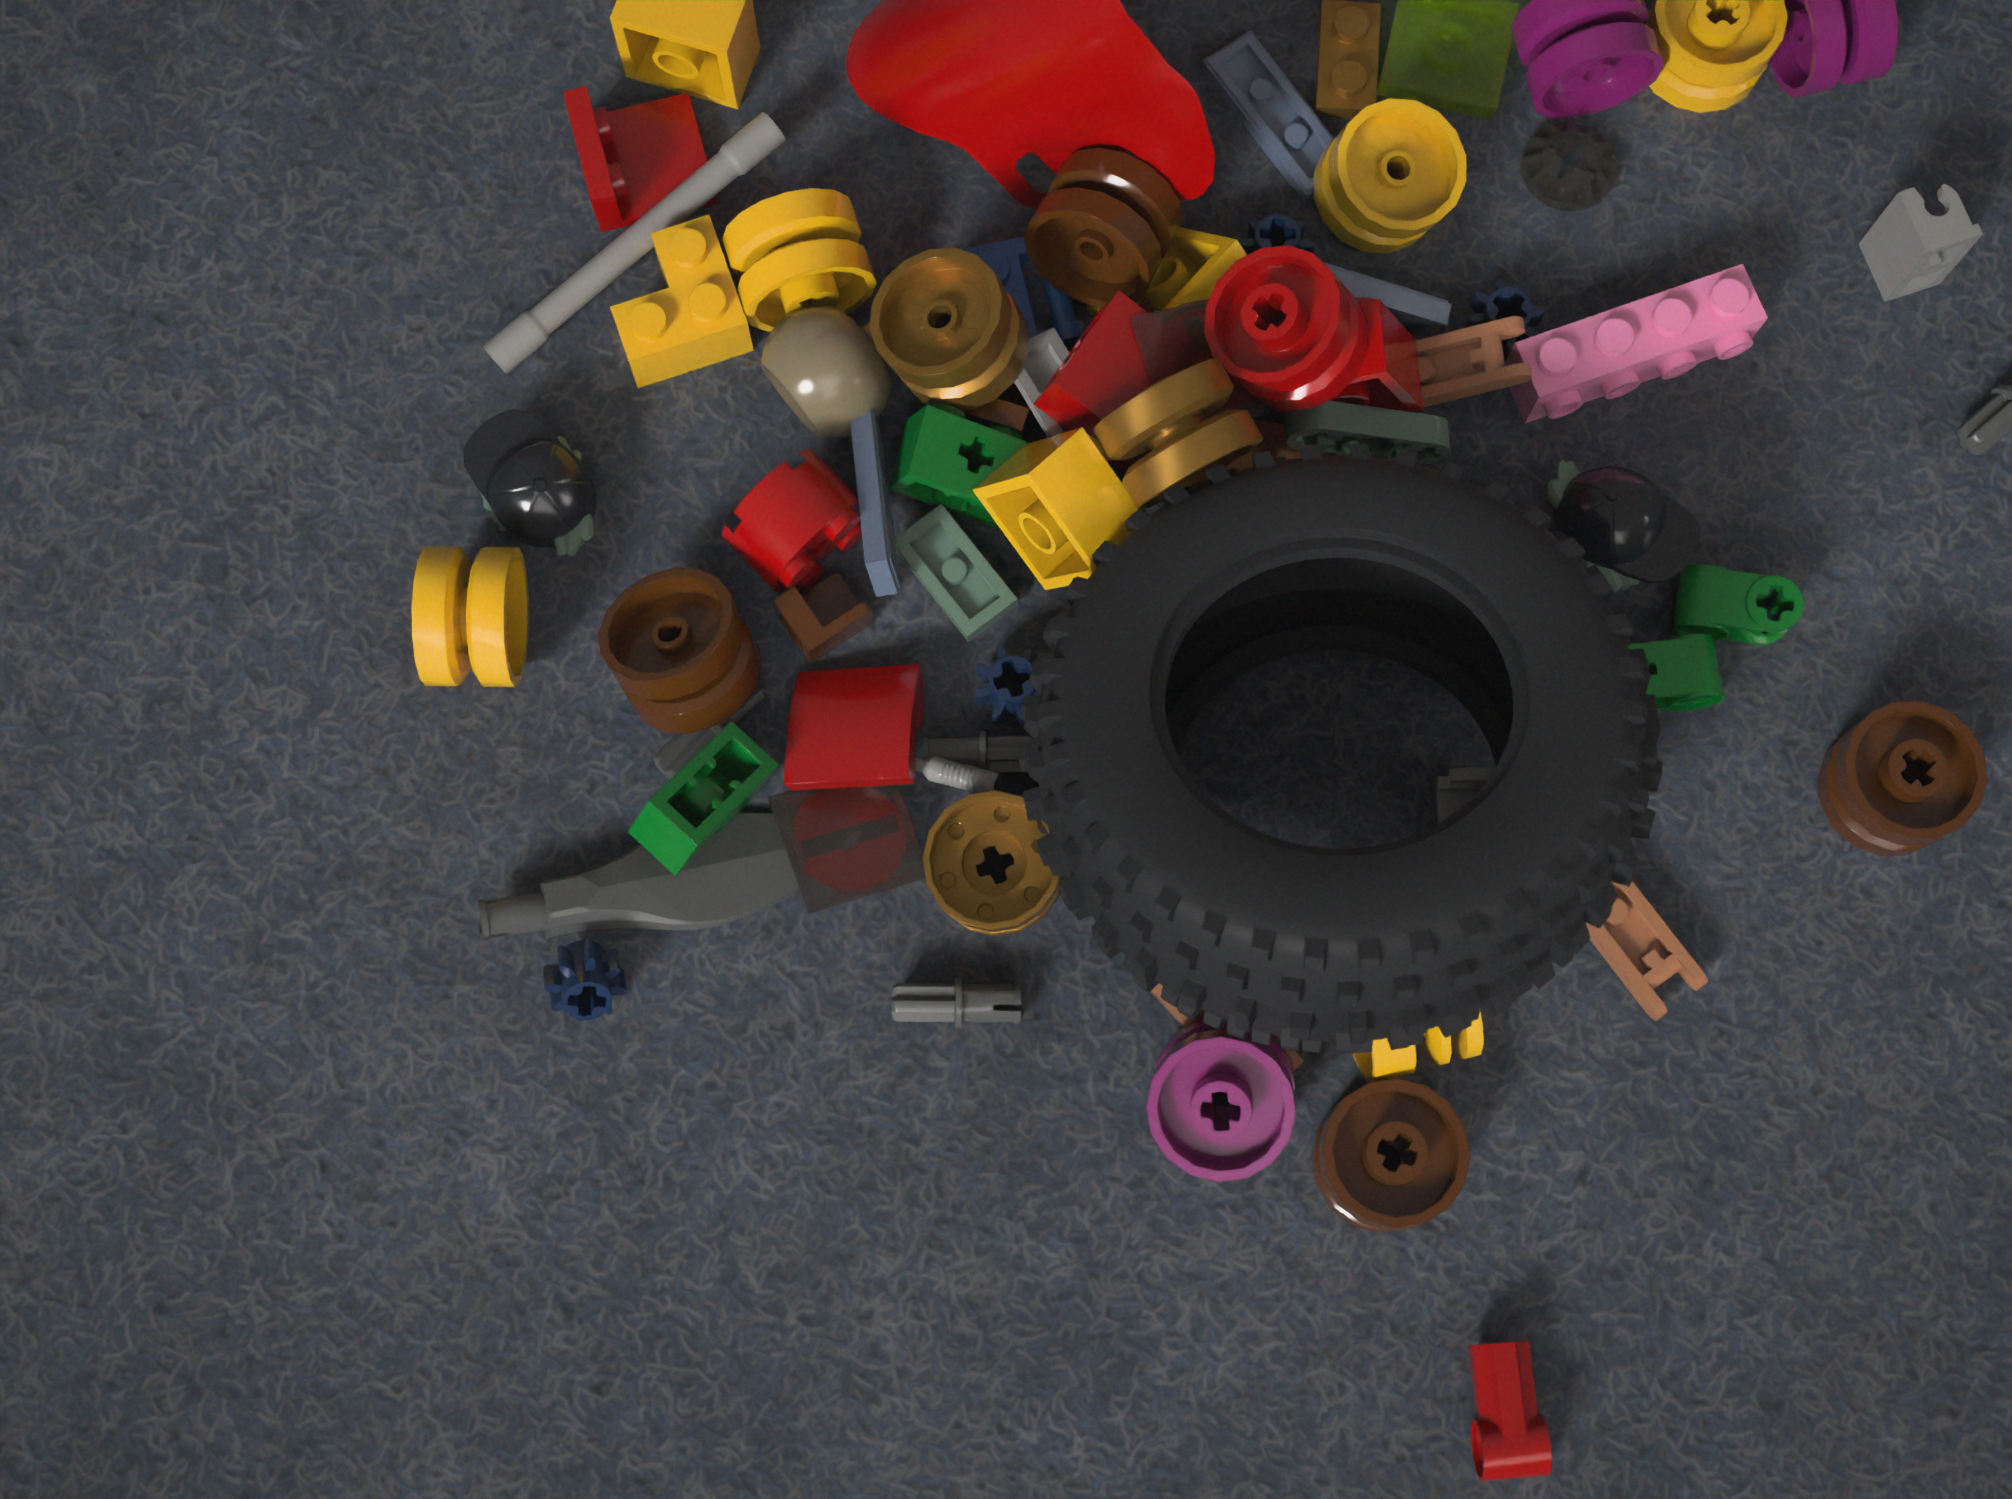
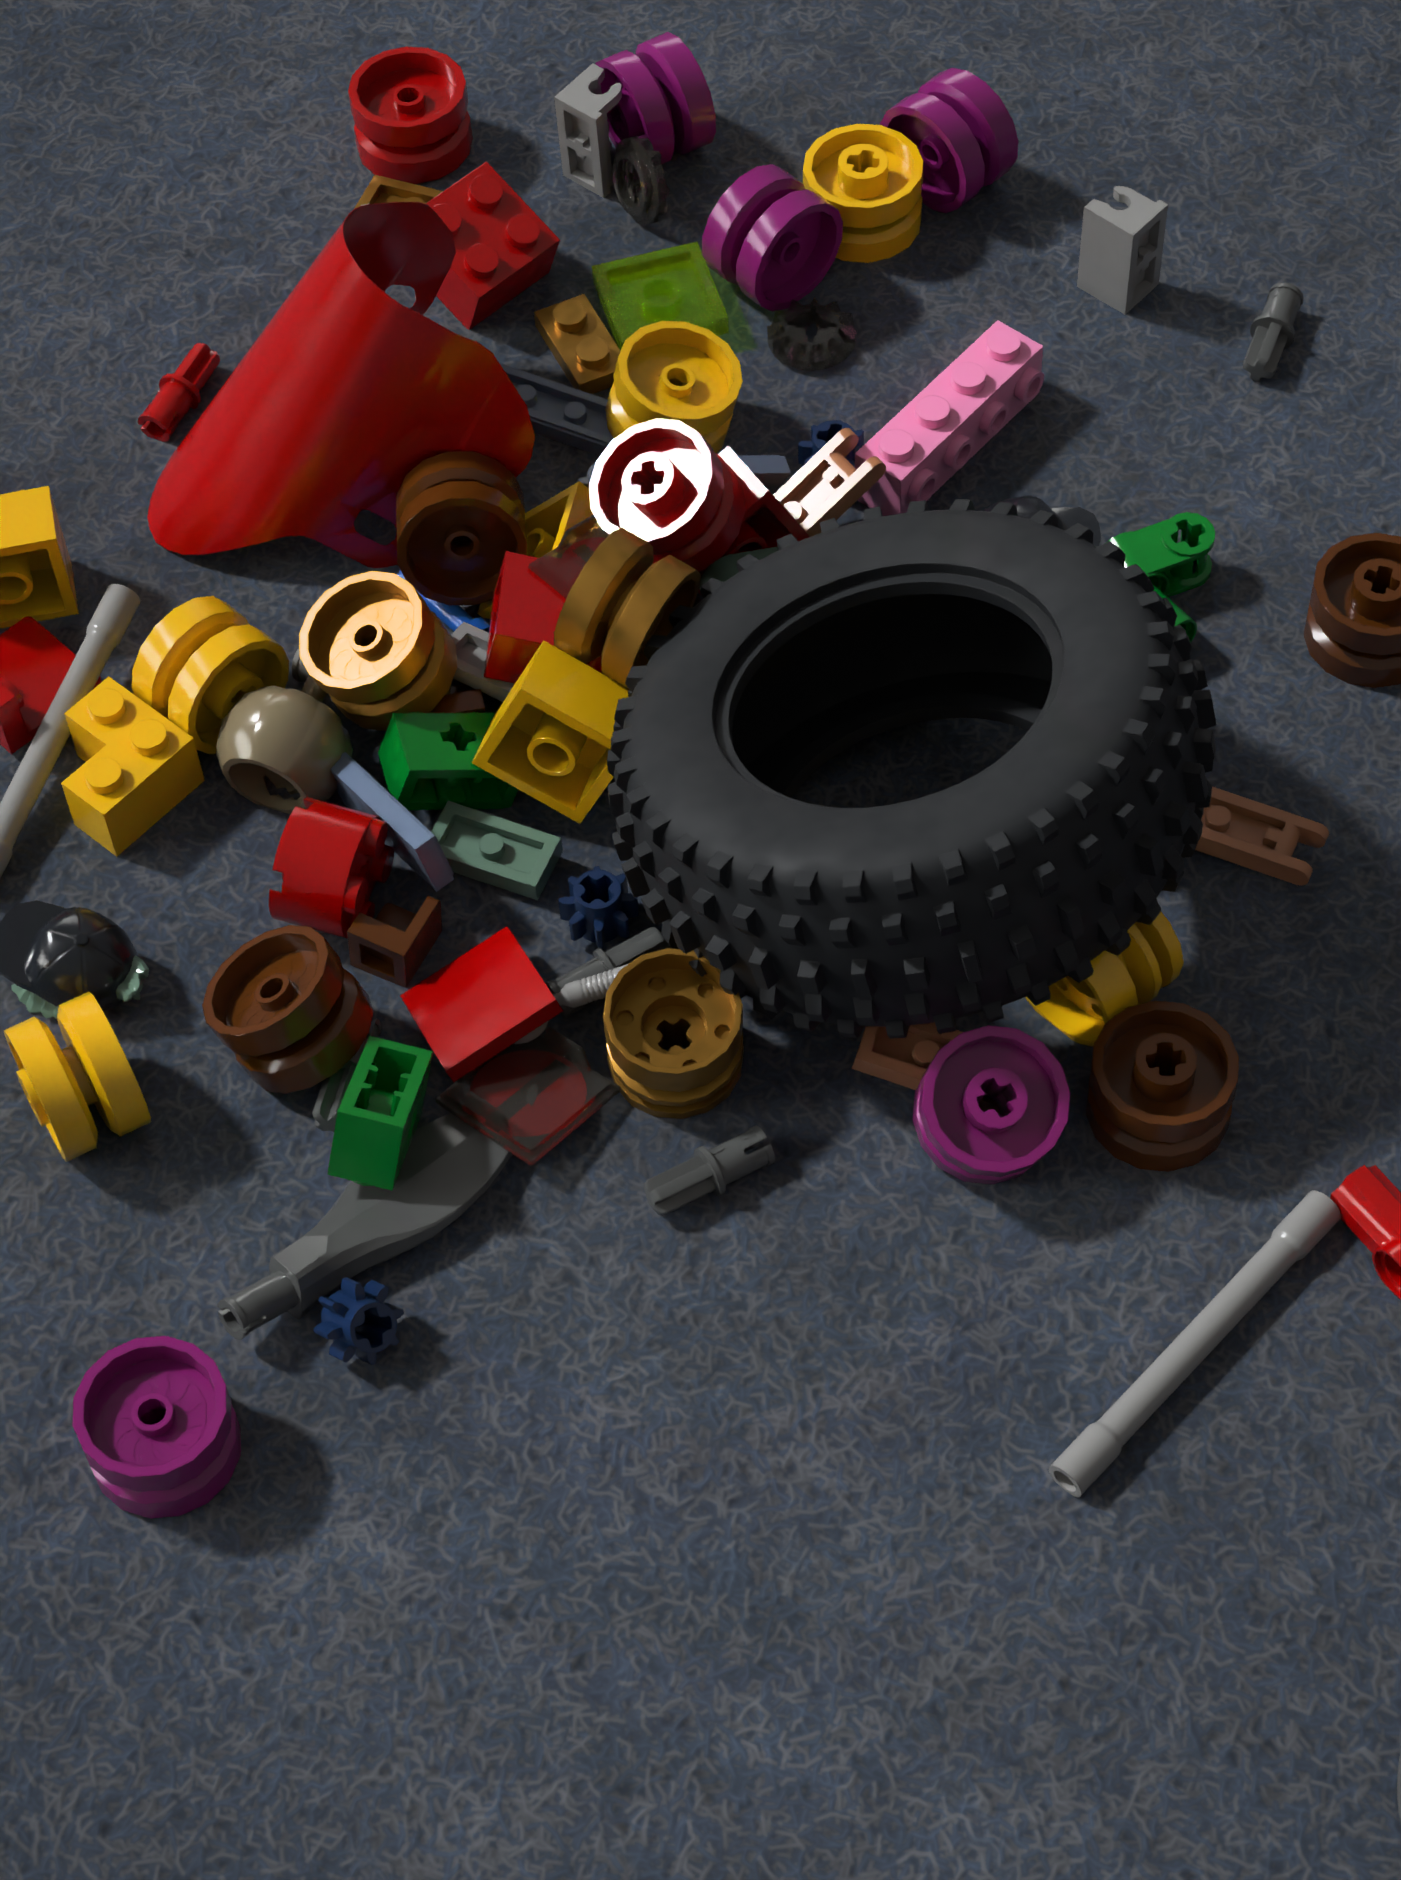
camera: 25 degrees left, 20 degrees down
(334, 965) = (157, 1426): none -> magenta wheel
(1409, 1362) = (1103, 1440): none -> light grey piece

